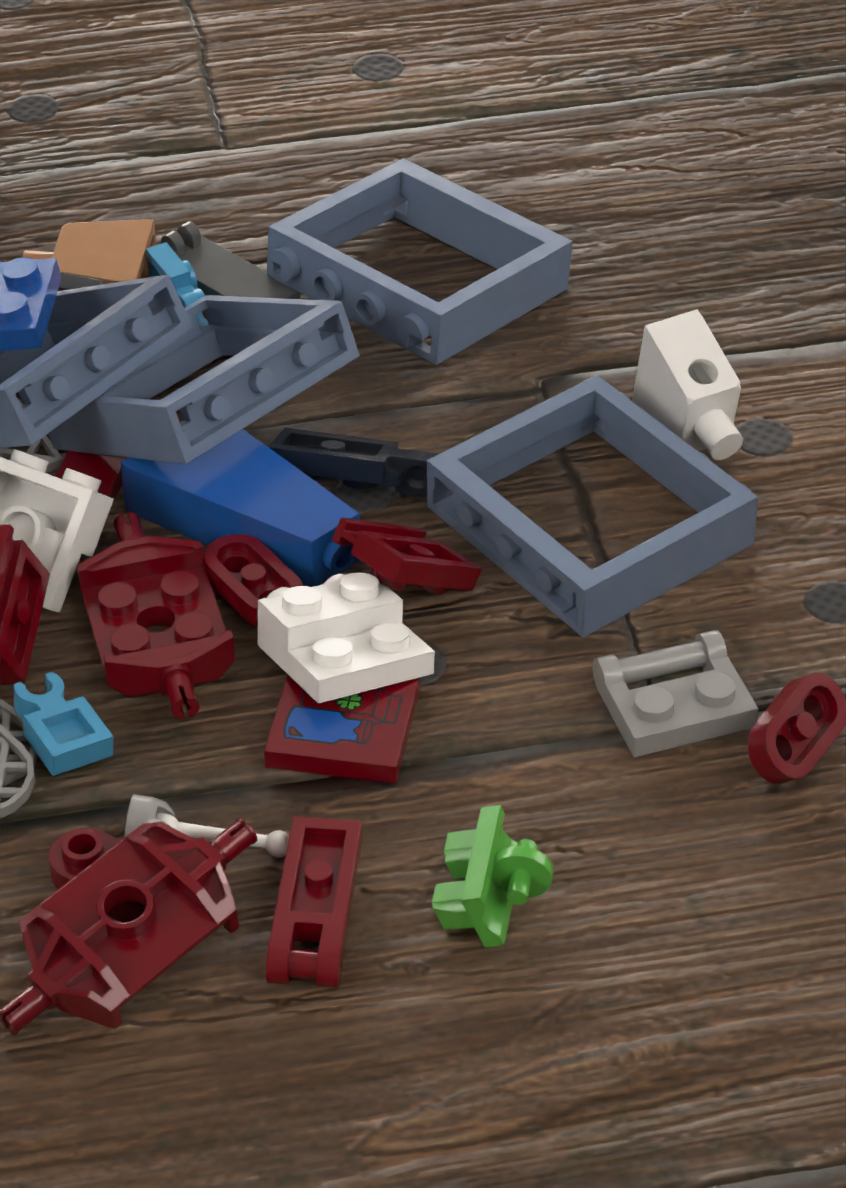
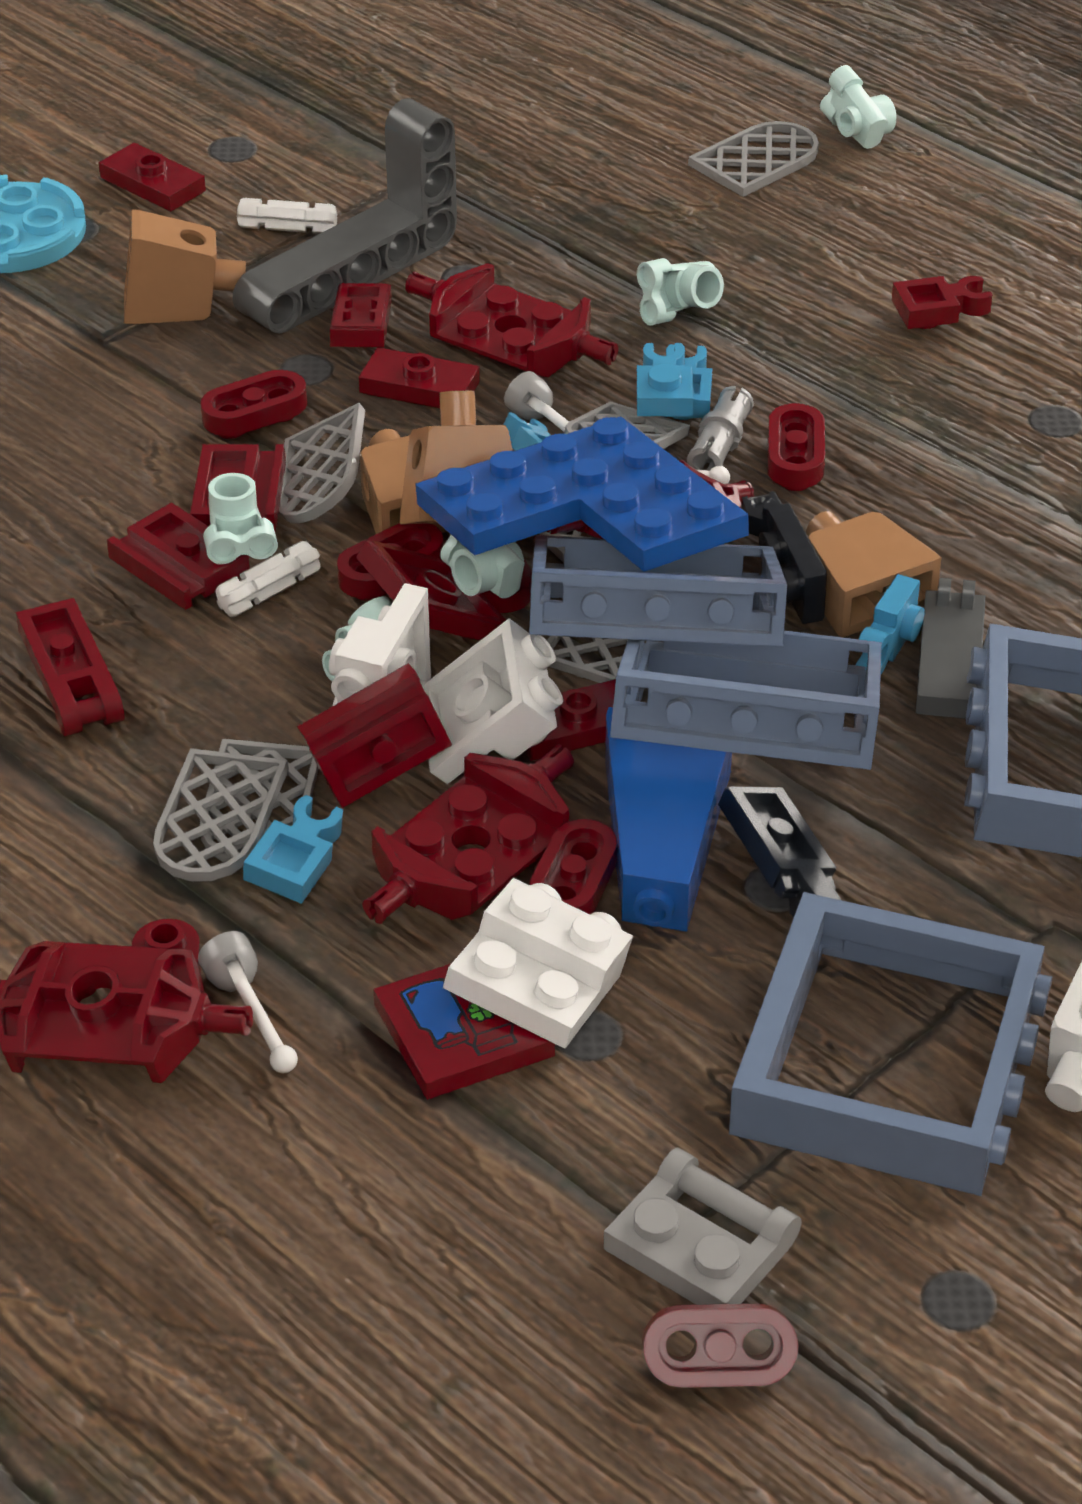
camera: 55 degrees right, 0 degrees up
(314, 901) = (224, 1114): dark red plate -> none
(405, 557) = (678, 947): dark red plate -> none
(495, 875) = (338, 1213): bright green hips -> none

